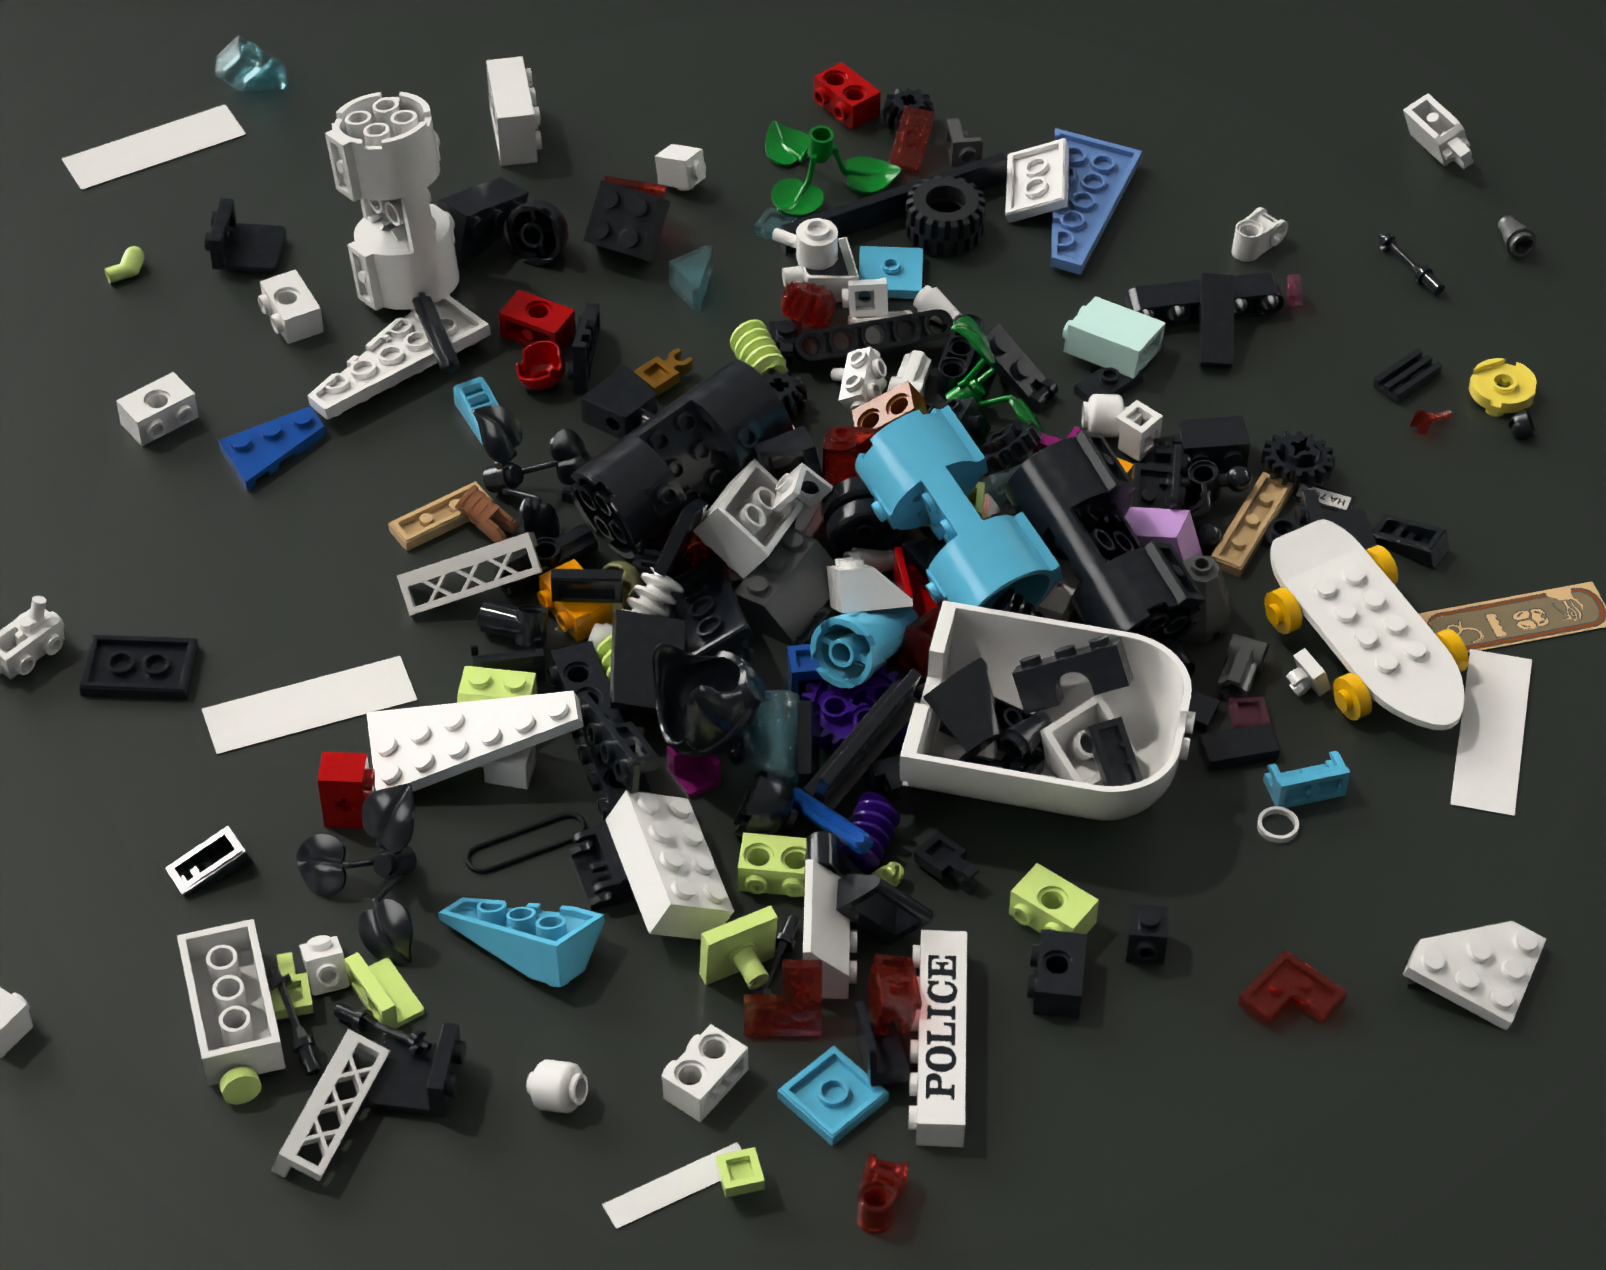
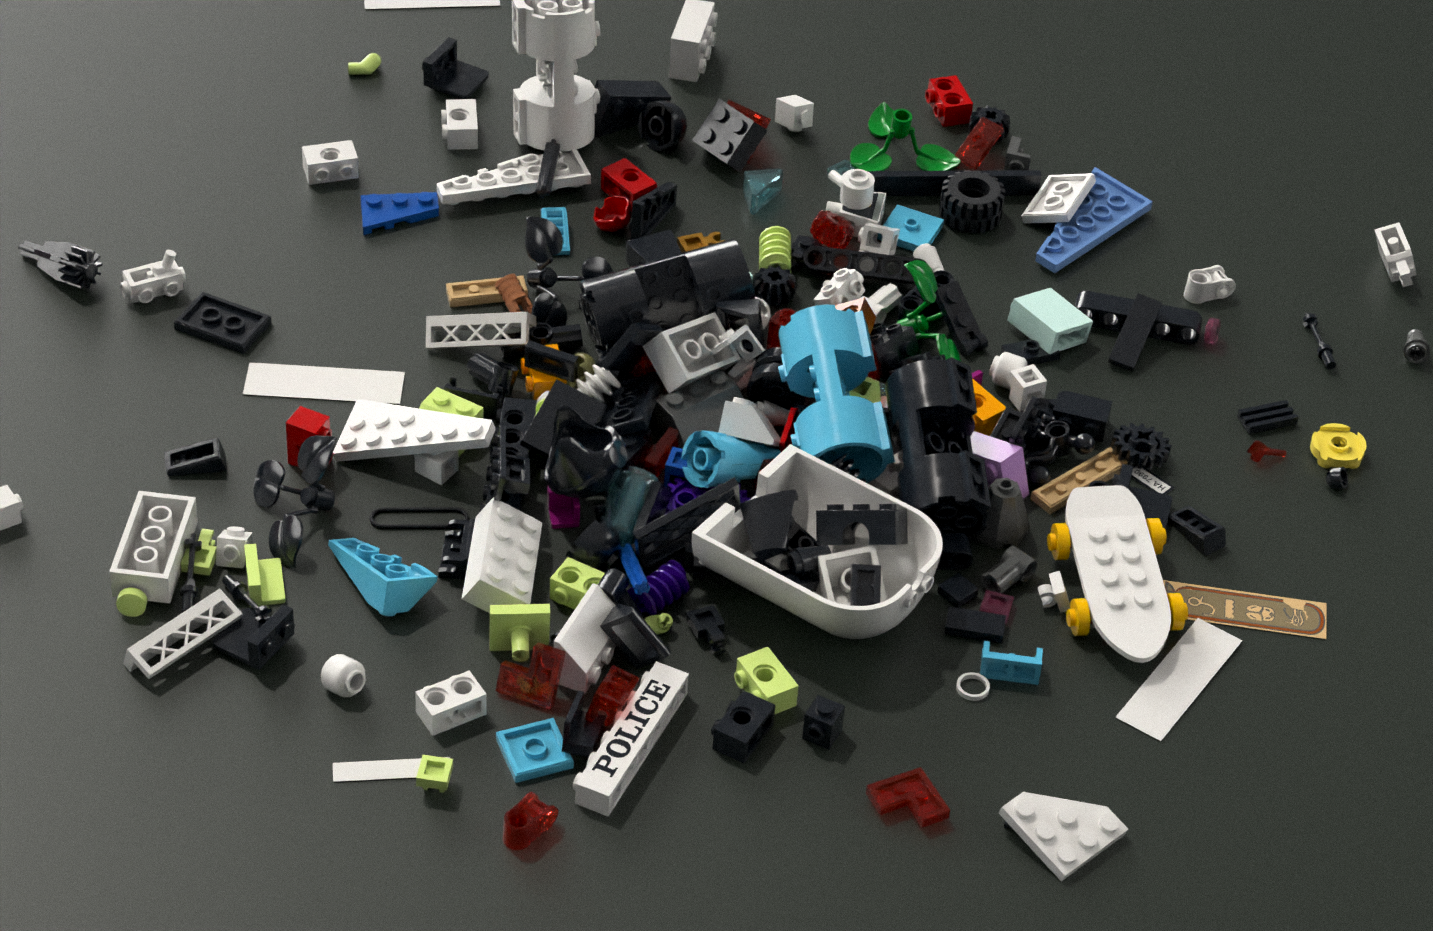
camera: 20 degrees right, 5 degrees down
(768, 658) = (660, 452): none -> clear red plate

